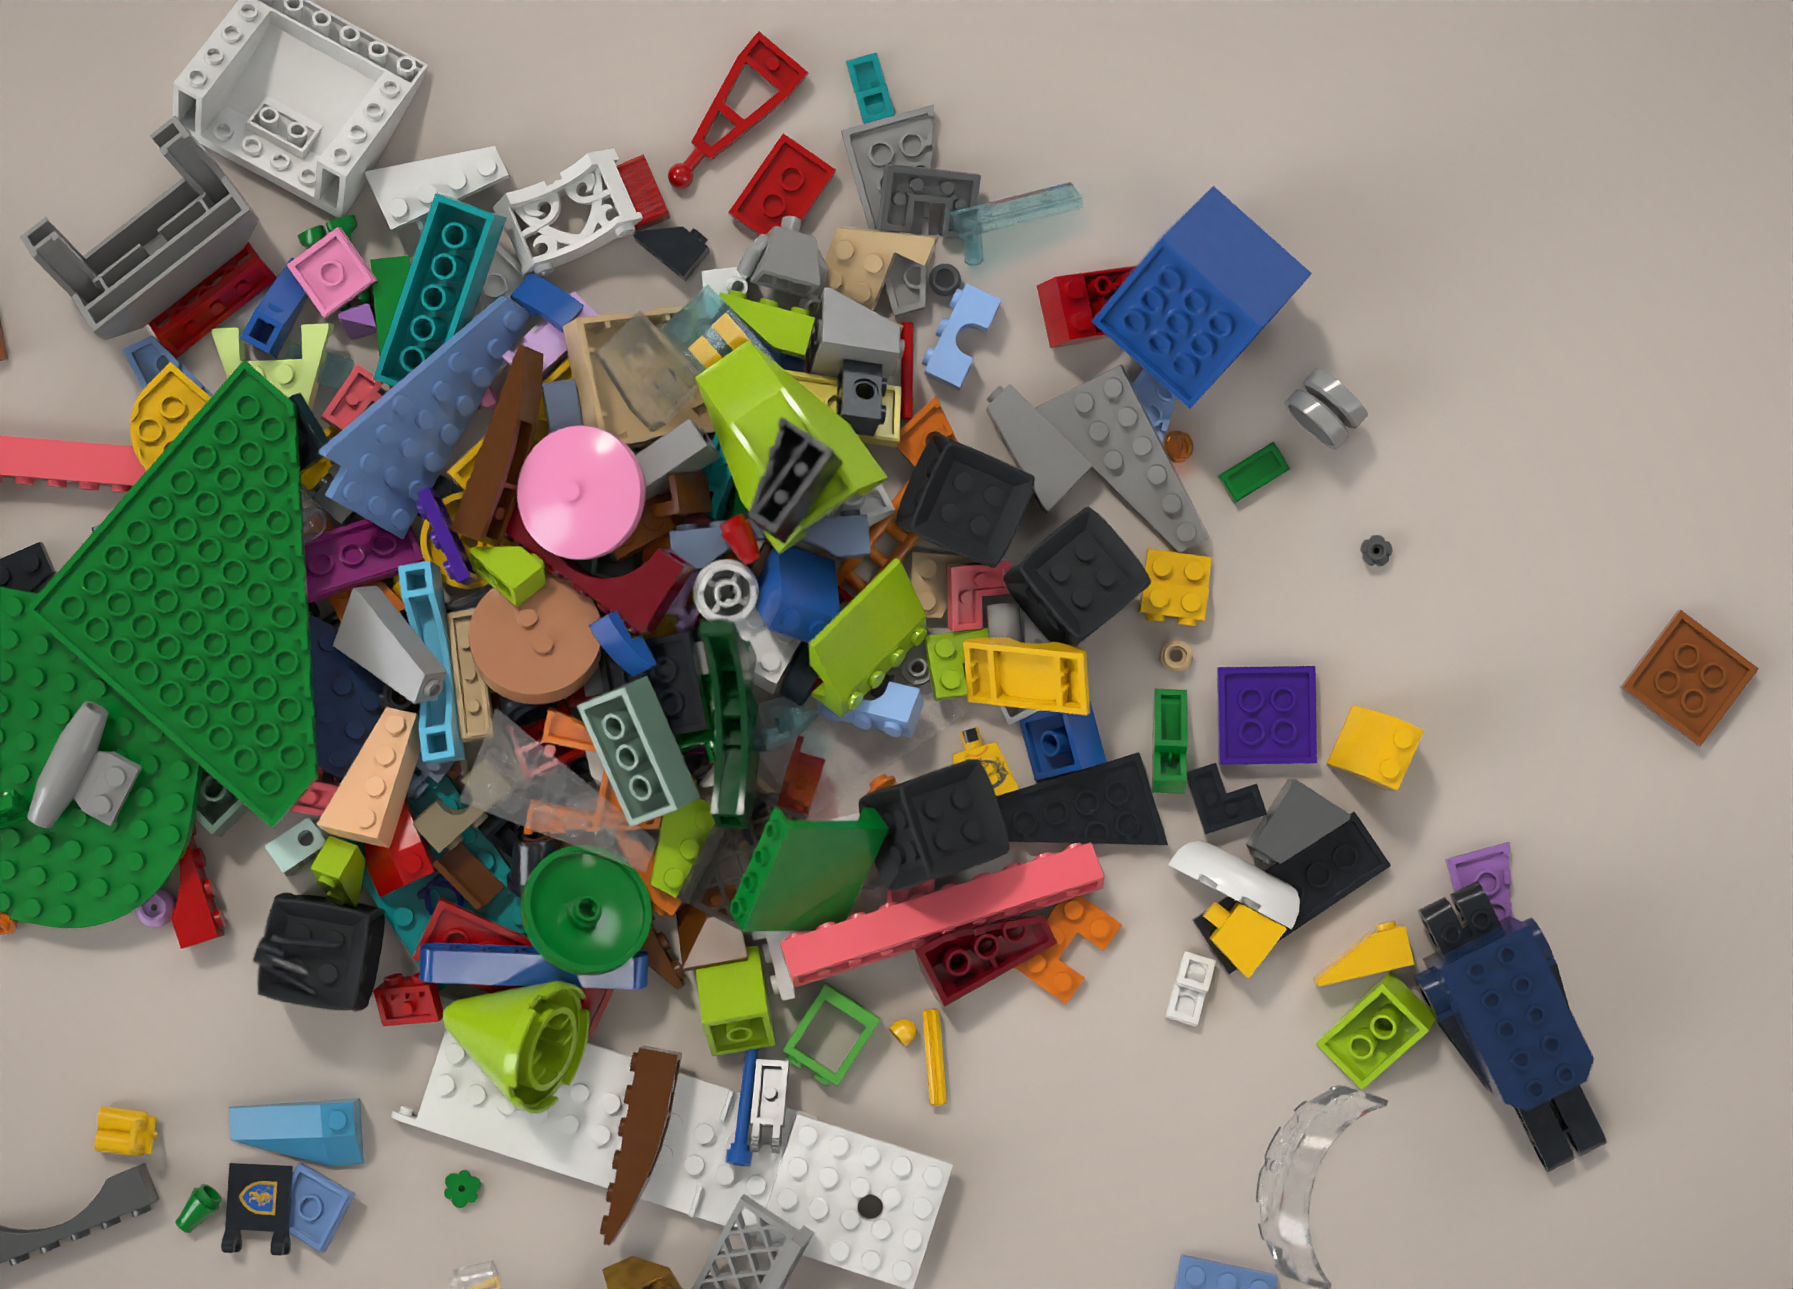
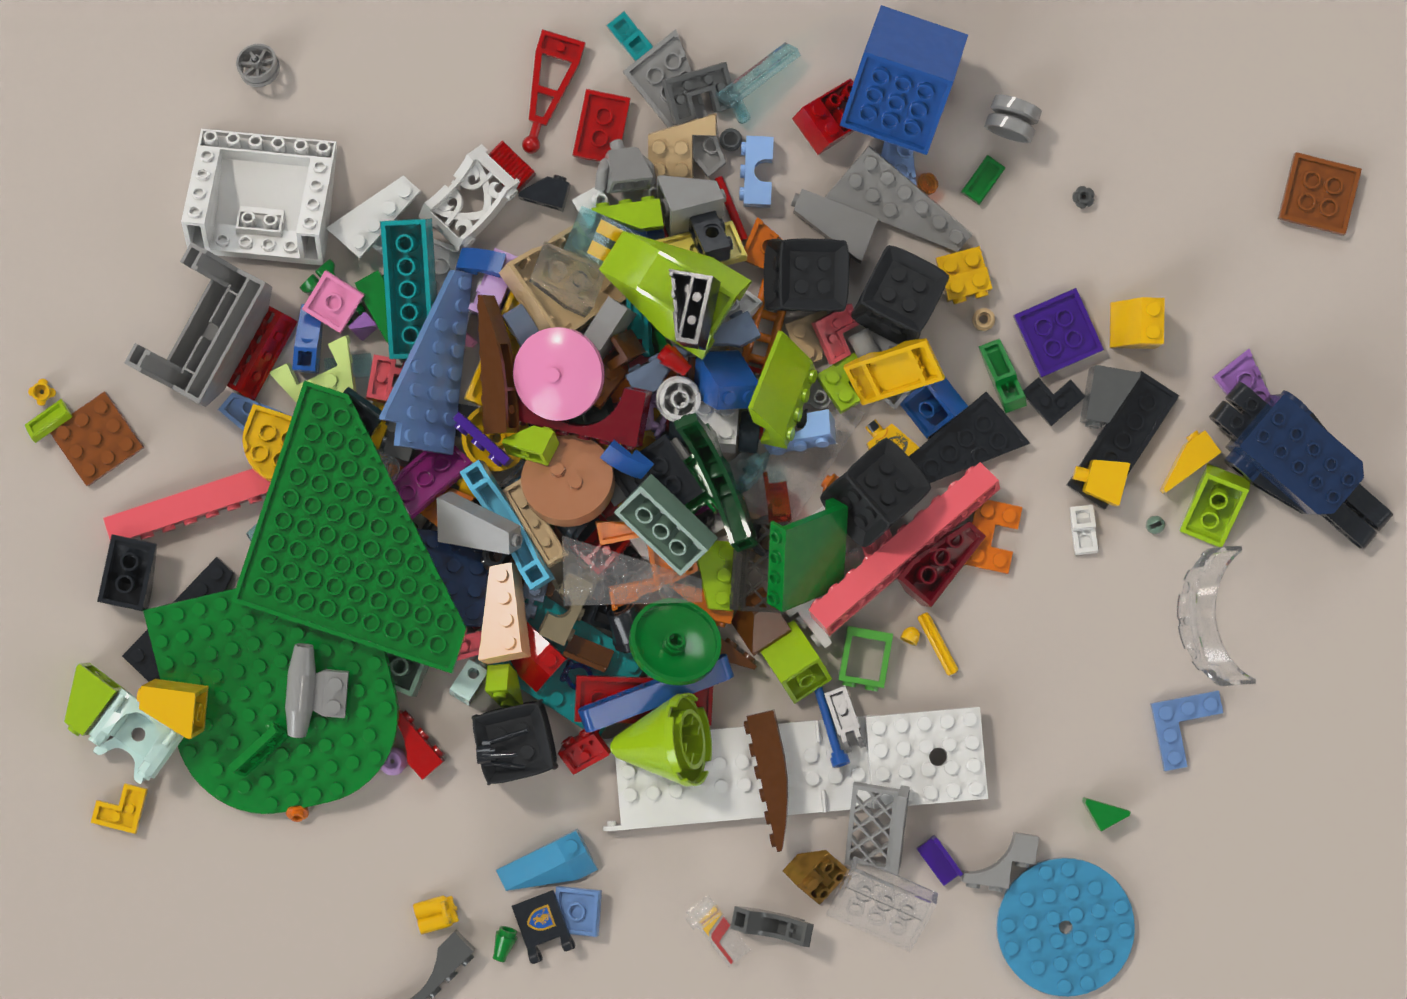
camera: 20 degrees left, 0 degrees up
(459, 1197) = (674, 853): green plant -> none
(1239, 881) = (1085, 446): white brick -> none
(1287, 1014) = (1153, 519): none -> sand green hinge

